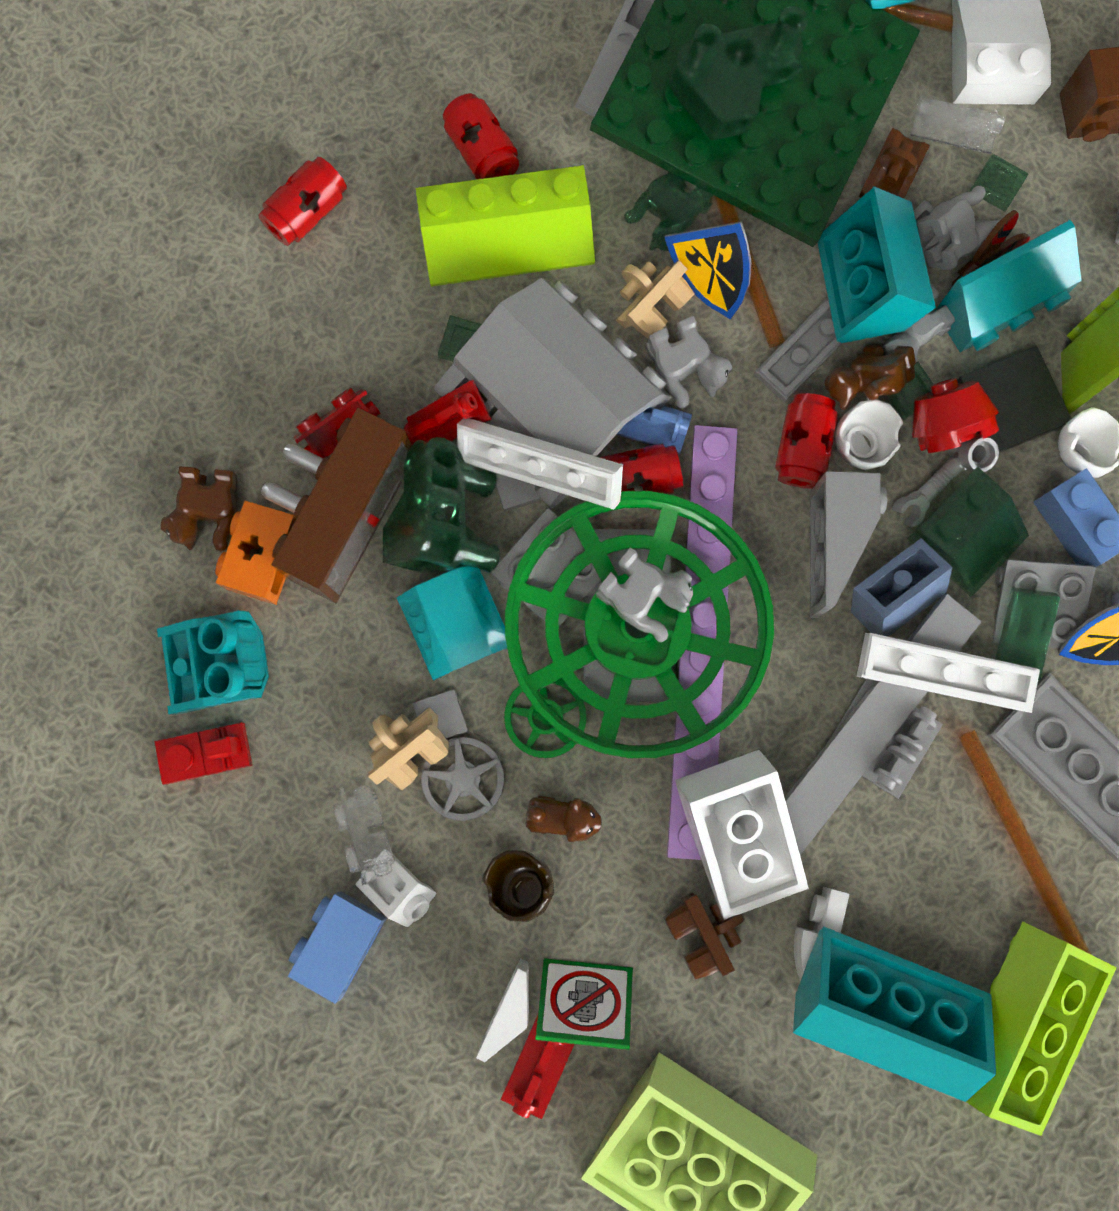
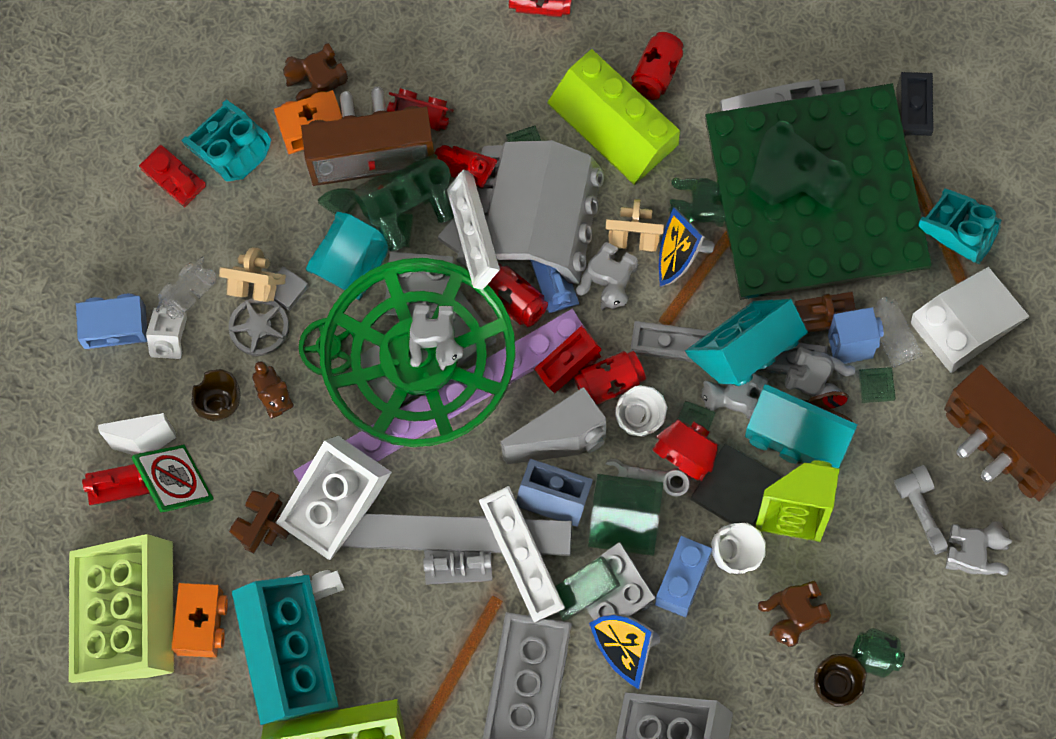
camera: 60 degrees right, 10 degrees down
(379, 587) = (338, 200): none -> clear green tile
(755, 469) = (568, 358): none -> red hinge
(788, 1108) = (191, 603): none -> orange brick
(872, 375) = (679, 385): reddish brown animal -> none
(948, 158) = (855, 335): none -> medium blue brick

